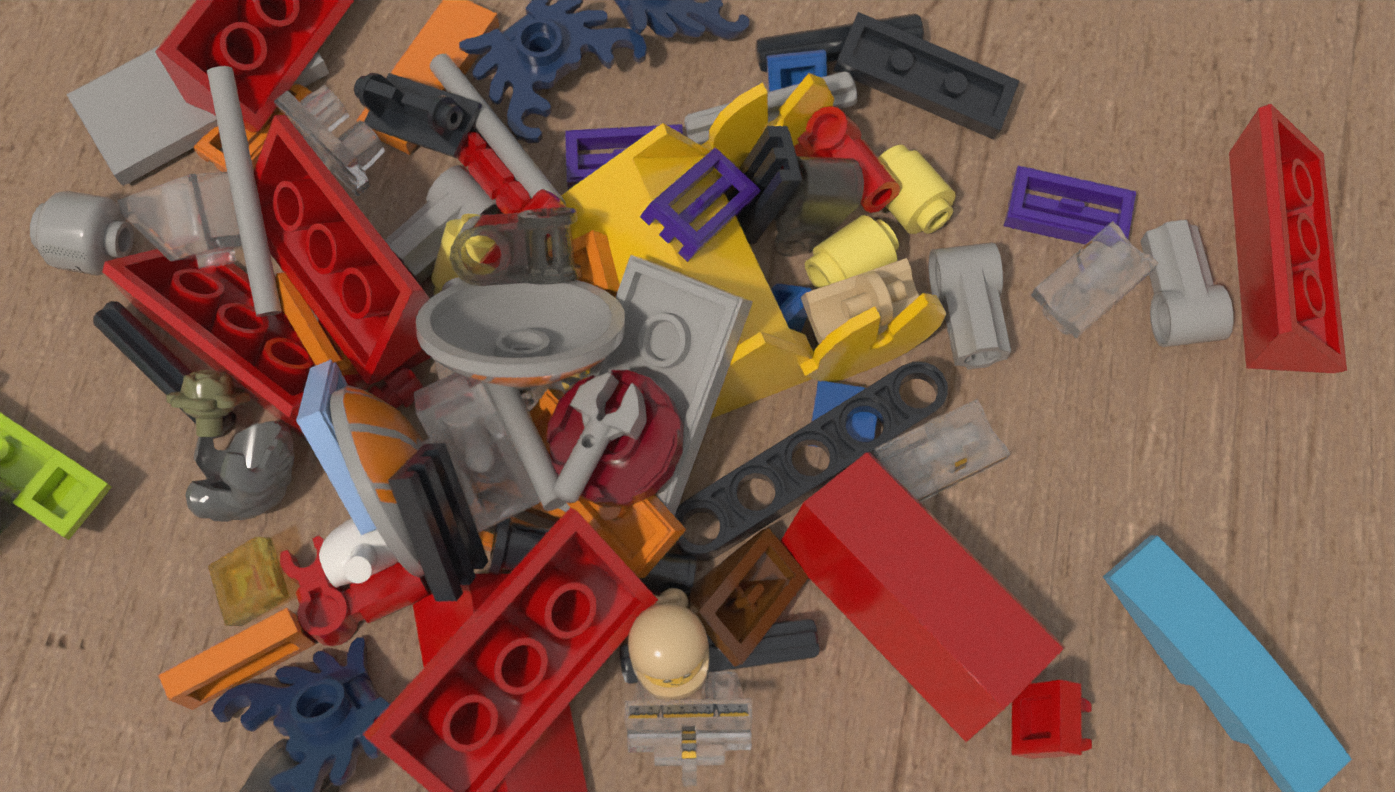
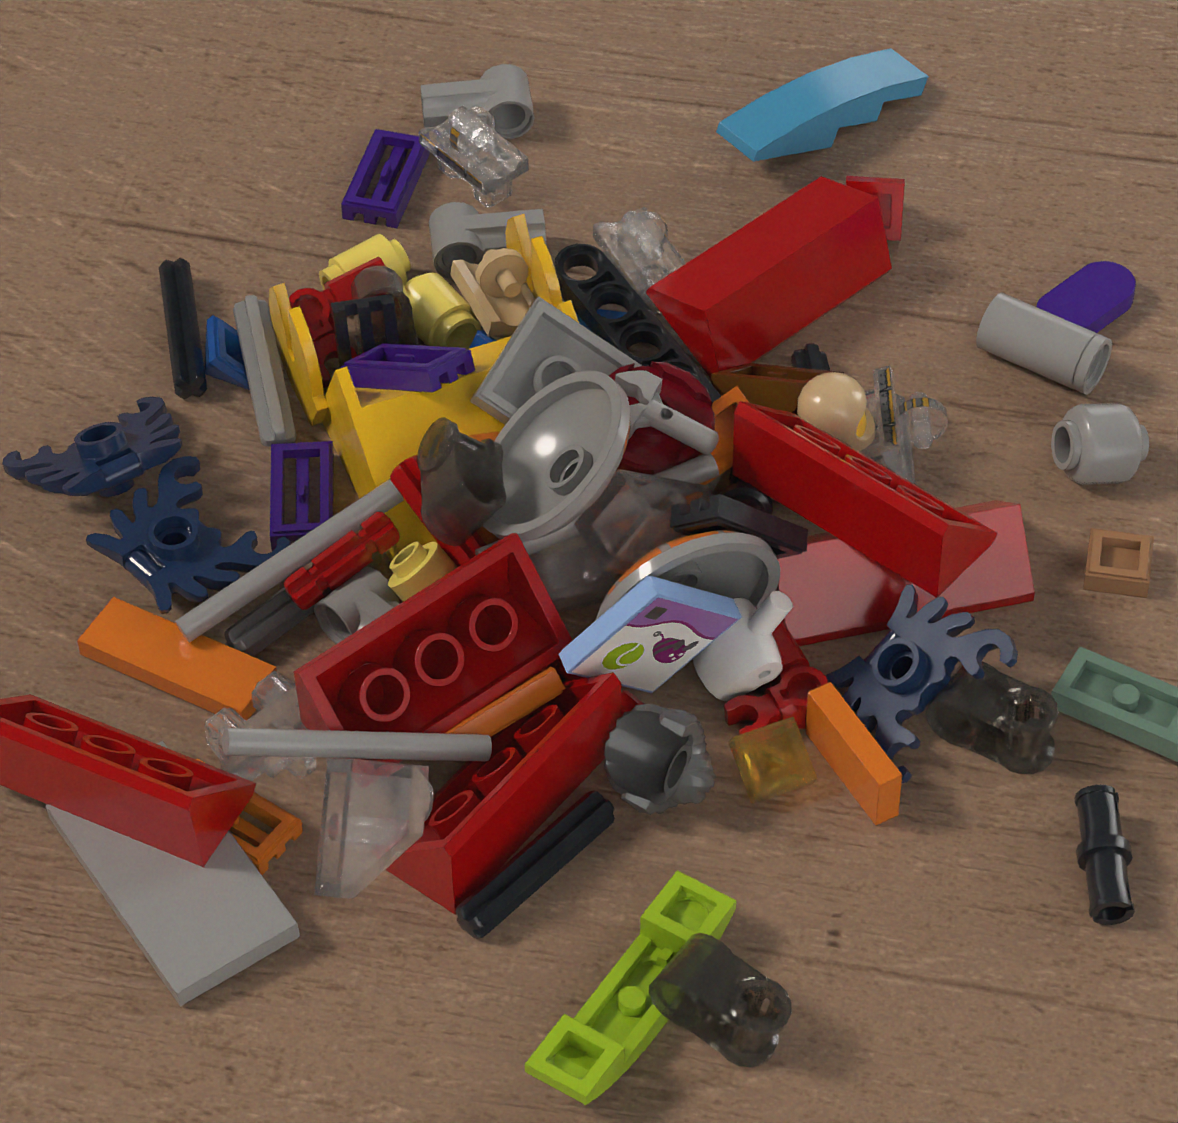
camera: 90 degrees left, 20 degrees down
(80, 232) = (373, 939): light grey head -> none
(208, 398) = (588, 779): olive plant -> none
(416, 112) = (257, 627): black hinge -> none
(926, 76) = (239, 255): black plate -> none
(1285, 249) = (436, 43): red slope -> none

